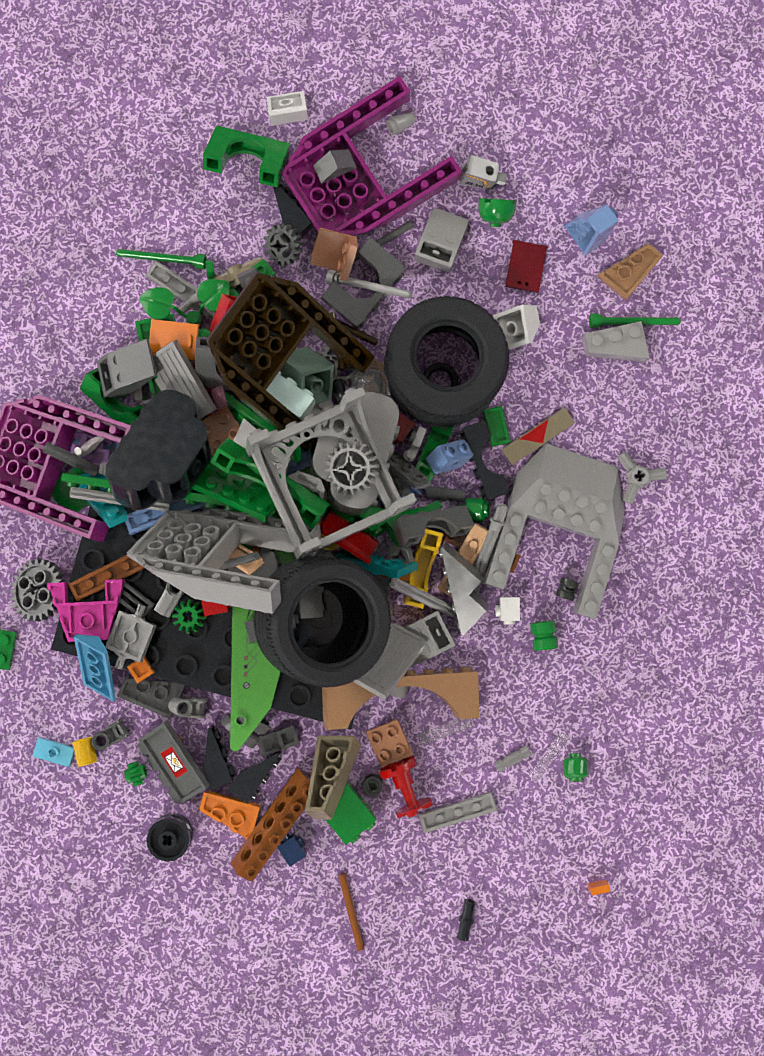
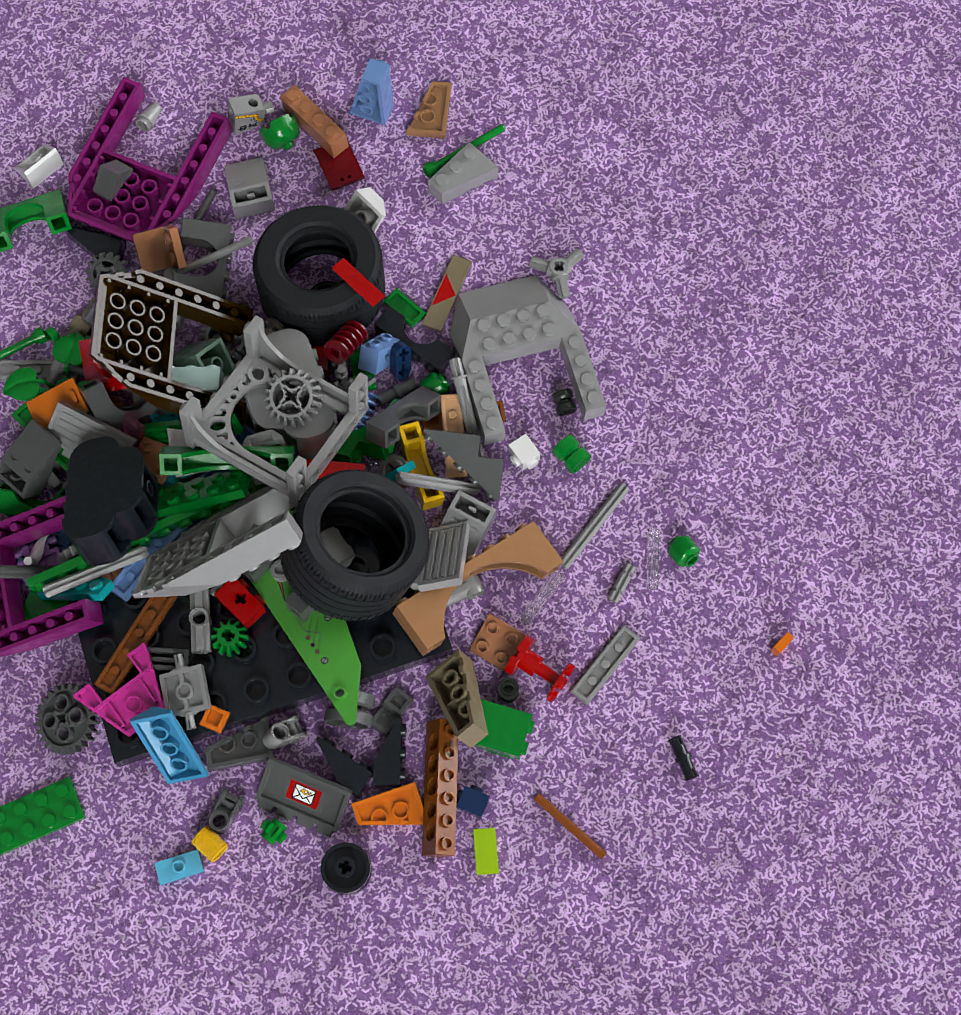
camera: 35 degrees left, 15 degrees down
(278, 888) = (485, 851): none -> lime tile
(427, 436) = (345, 341): none -> dark red piece
(463, 472) = (400, 360): none -> dark blue beam
(467, 399) = (358, 282): none -> red piece
(523, 700) = (594, 525): none -> light grey axle
(529, 216) = (314, 121): none -> nougat brick

